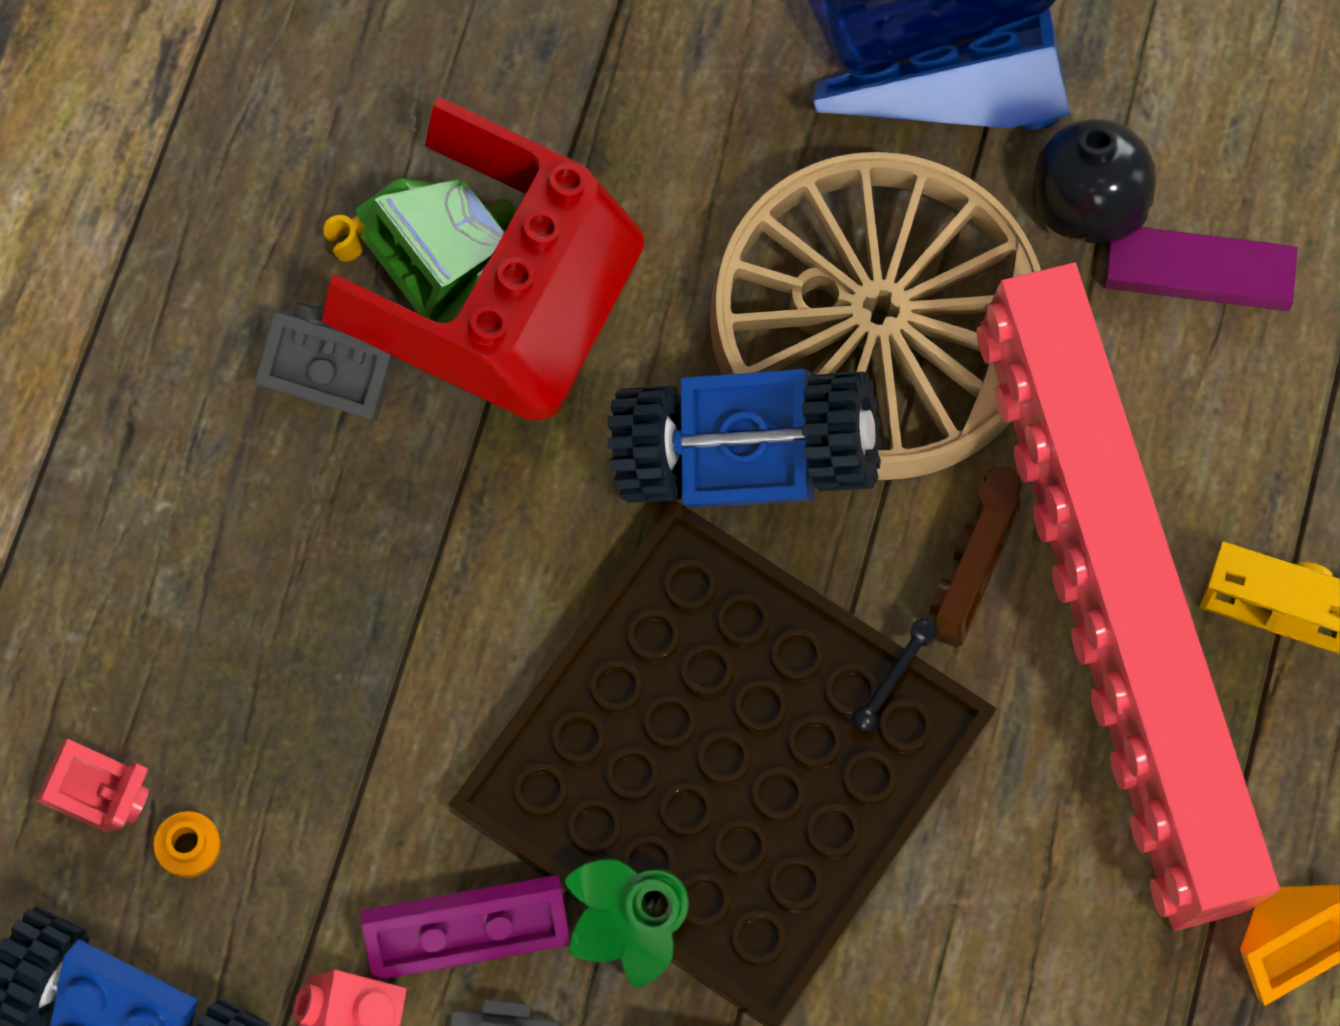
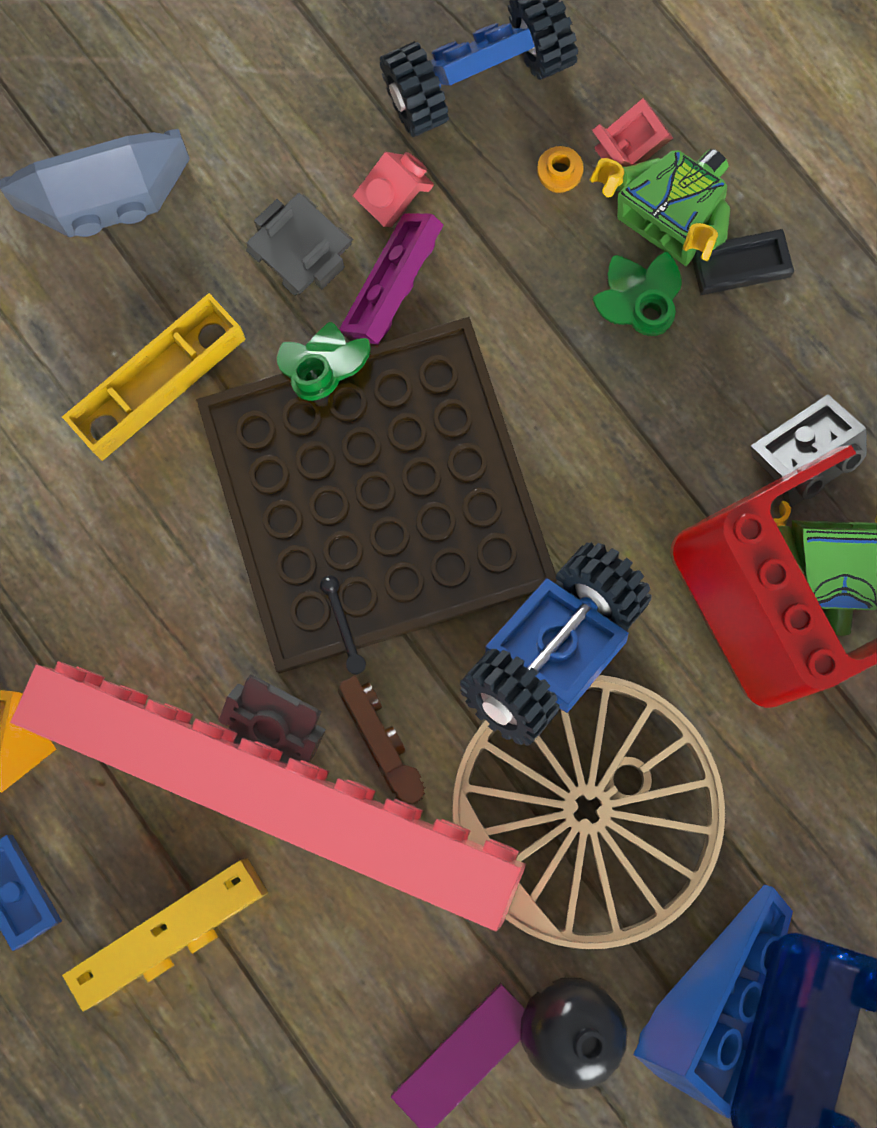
camera: 130 degrees right, 10 degrees up
(146, 676) = (672, 201): none -> torso
(157, 576) = (744, 262): none -> black tile
(274, 662) = (639, 289): none -> green plate
(1046, 670) = (273, 718): none -> dark grey piece

